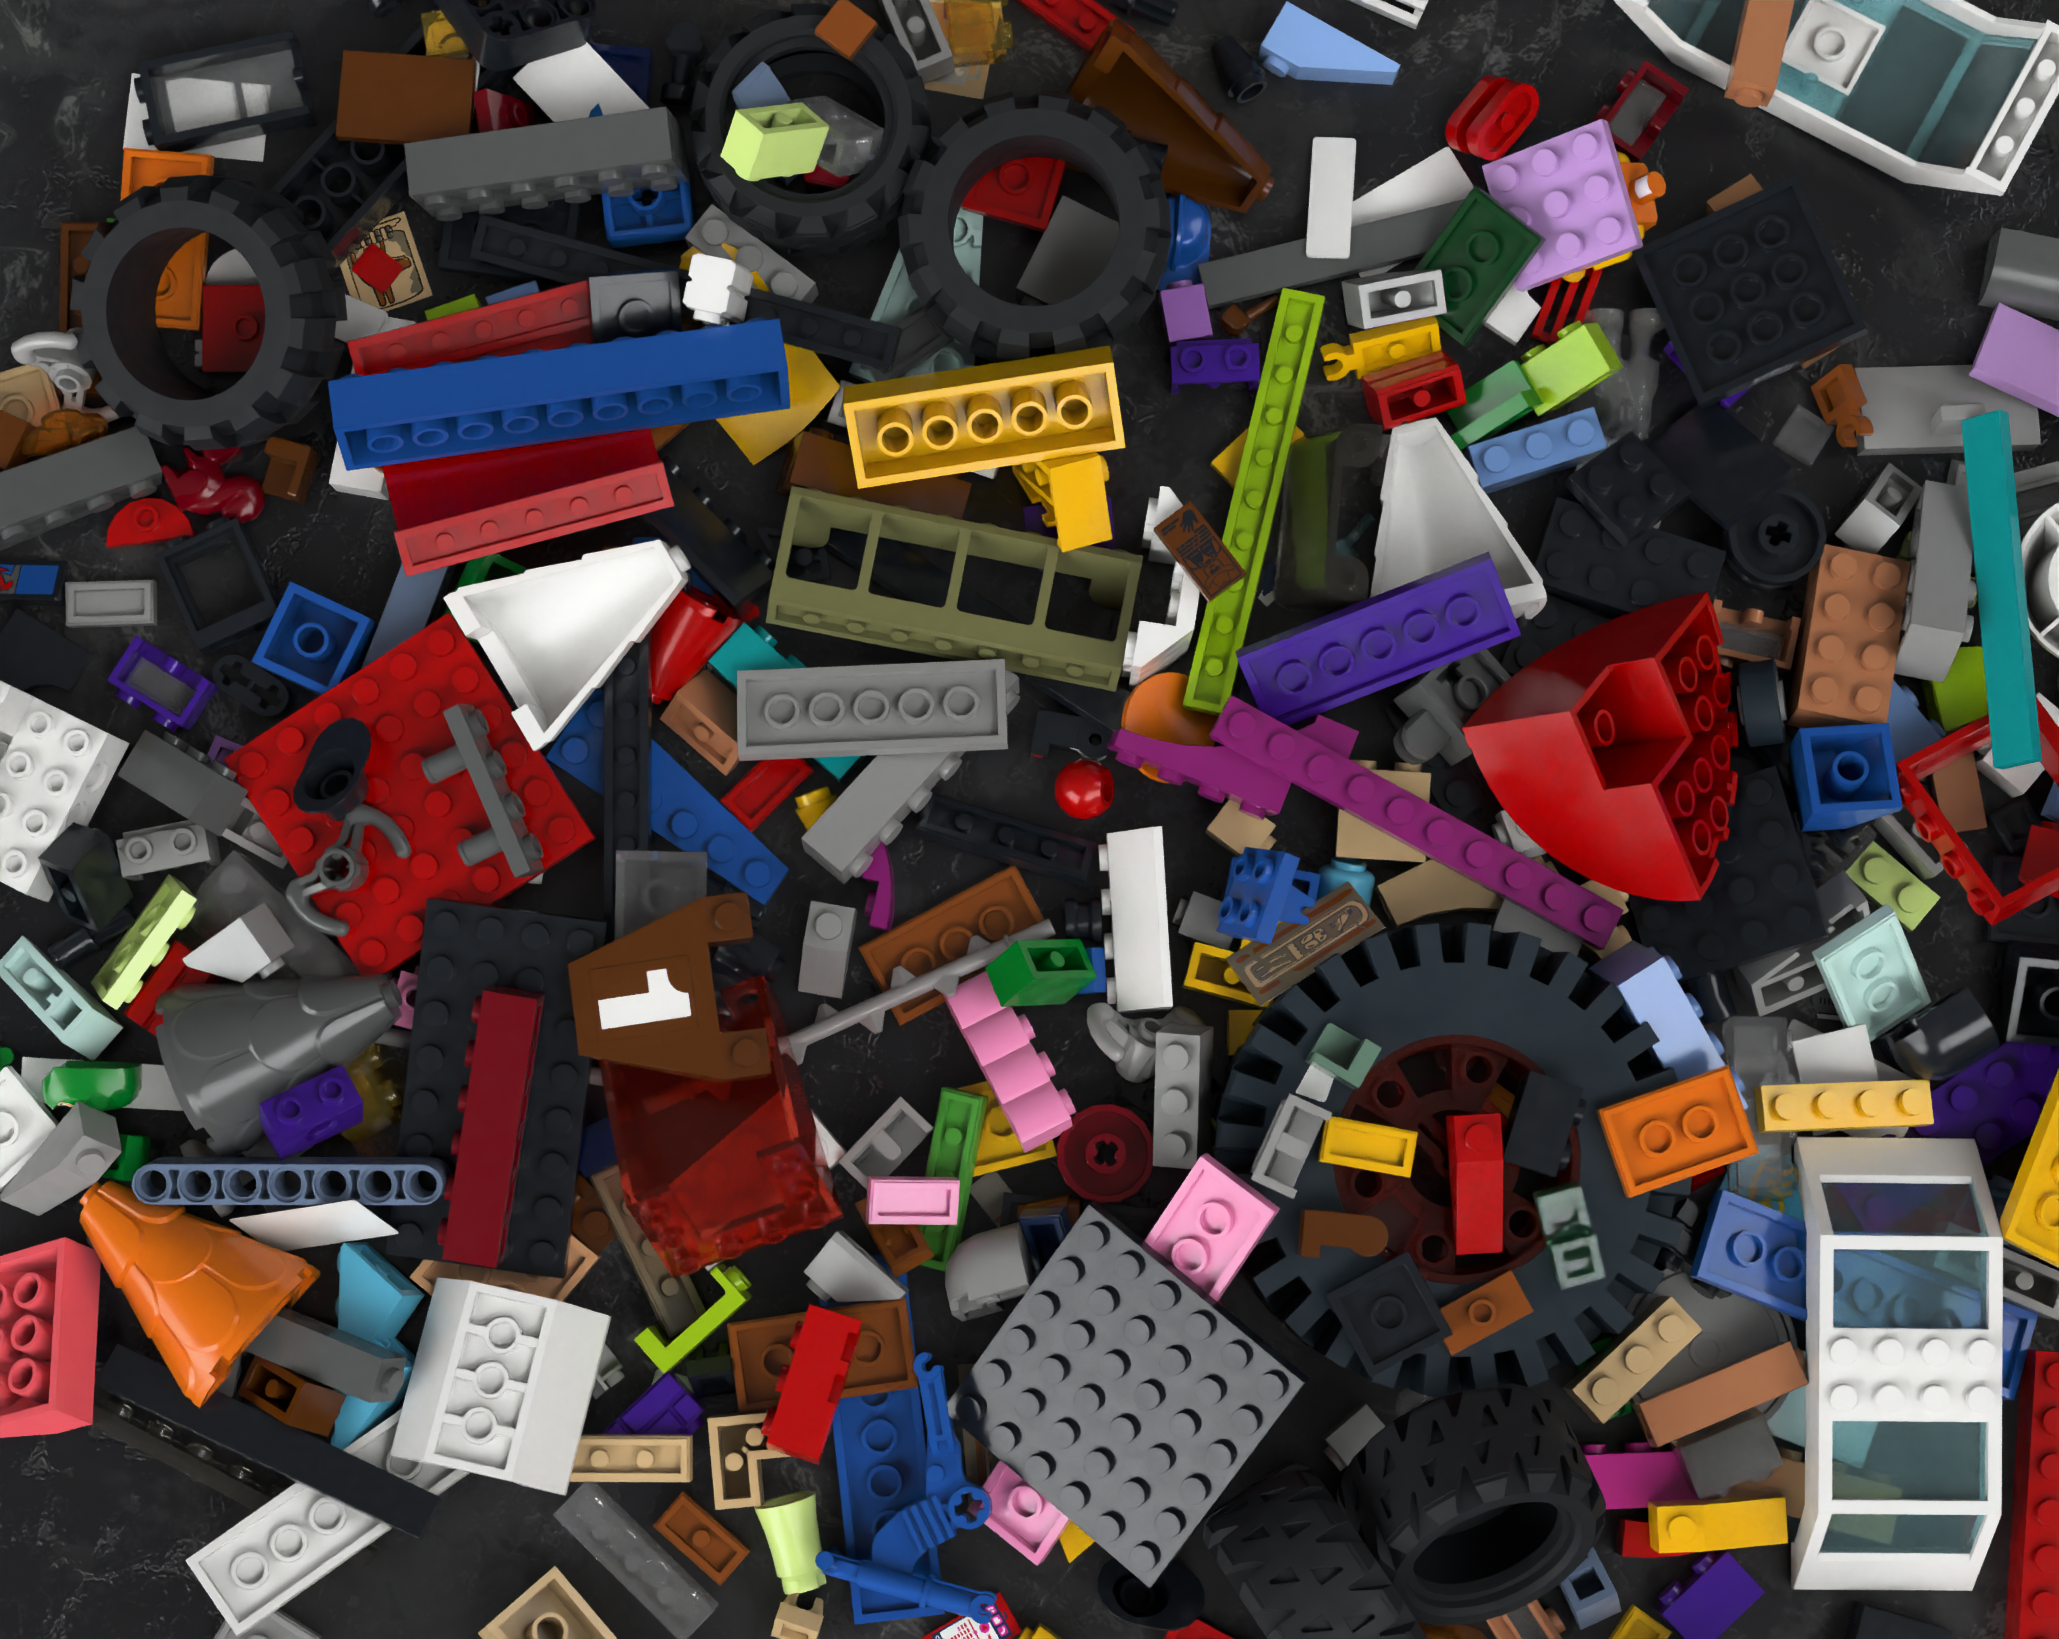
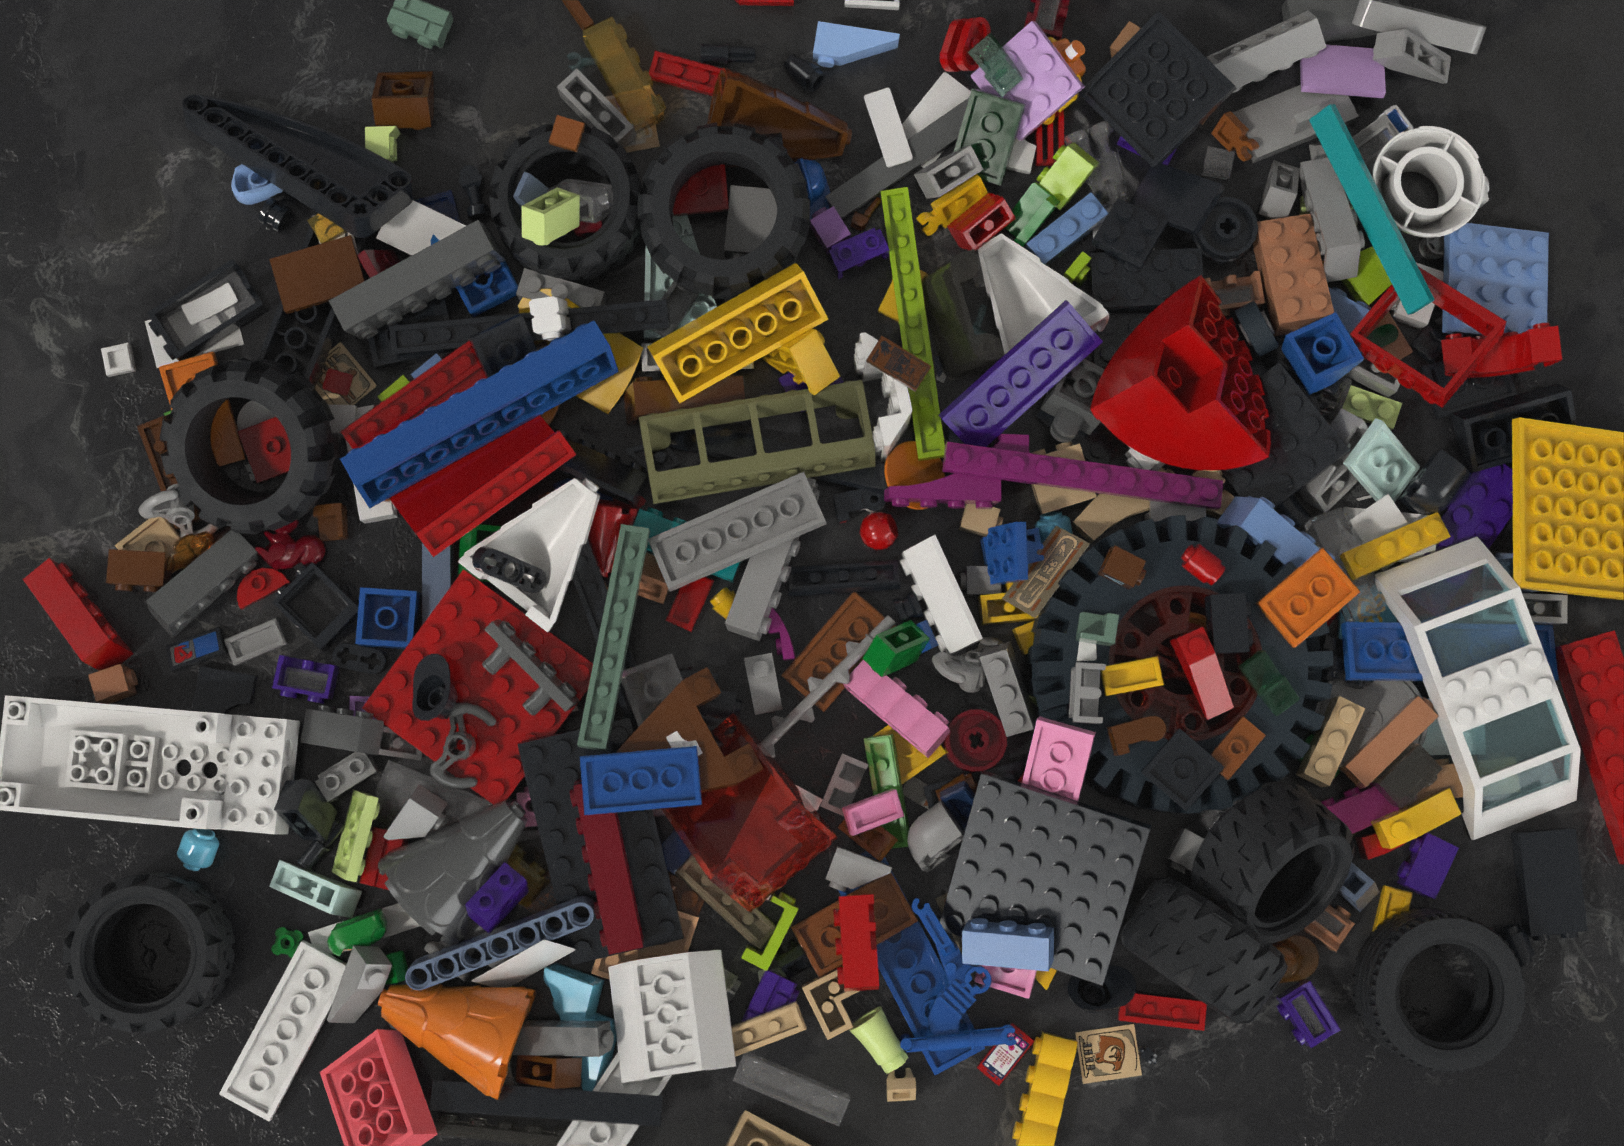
camera: 25 degrees left, 0 degrees up
(72, 115) = (118, 359): none -> white tile
(234, 84) = (209, 304): none -> white sticker
(496, 637) = (498, 570): none -> black beam
(584, 1020) = (640, 780): none -> blue tile
(628, 797) = (613, 638): none -> sand green plate
(679, 806) = (647, 637): blue wing -> none
(702, 1538) = (824, 1059): dark orange plate -> none
(1033, 1473) = (1008, 945): none -> medium blue brick
(1416, 981) = (1122, 568): none -> reddish brown brick
(1525, 164) = (996, 64): none -> clear green slope
(1529, 515) = (1078, 270): none -> lime plate
(1537, 1021) = (1202, 564): none -> red brick
(1943, 296) = (1270, 50): none -> light grey brick
(1949, 786) = (1383, 335): none -> dark green piece

